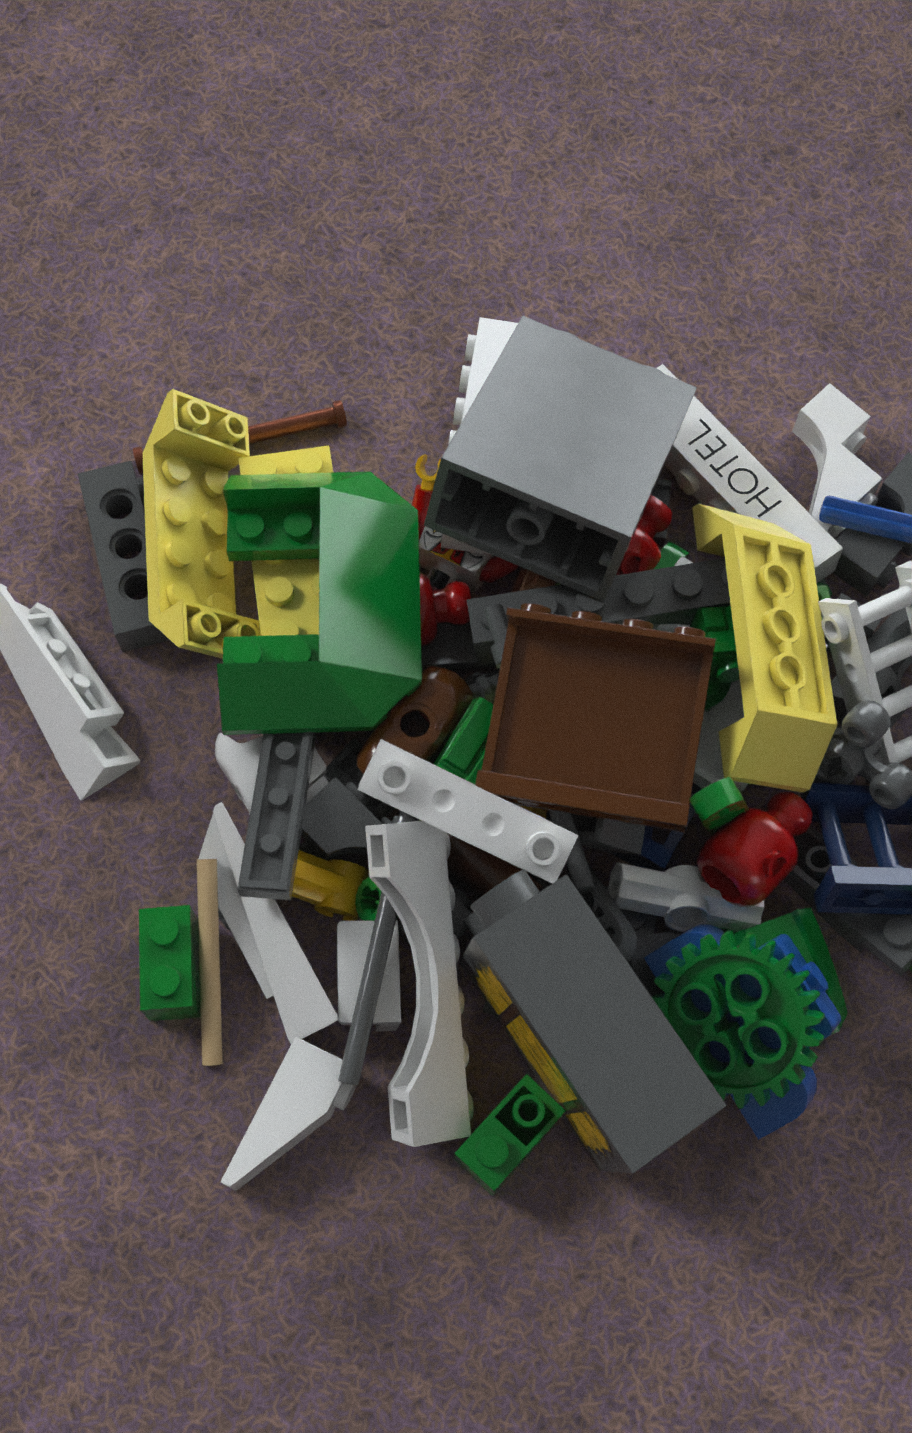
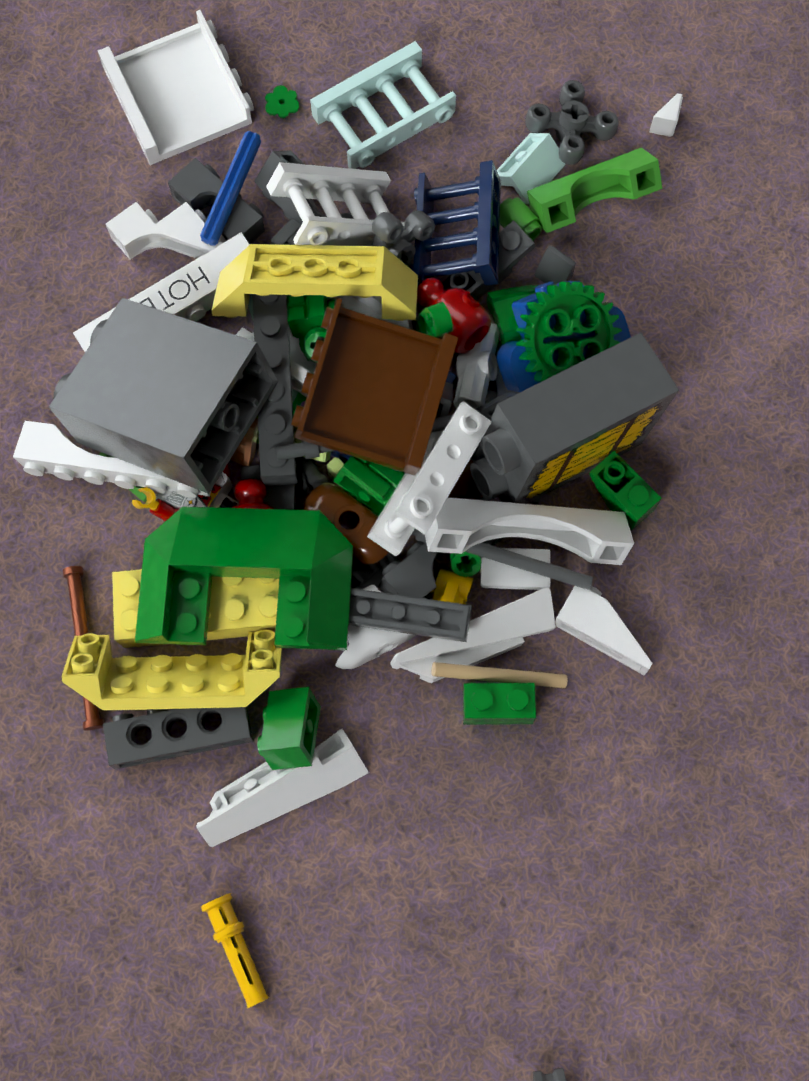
camera: 85 degrees left, 5 degrees up
(126, 682) = (289, 728): none -> green brick
(872, 1015) = (555, 266): none -> dark grey slope

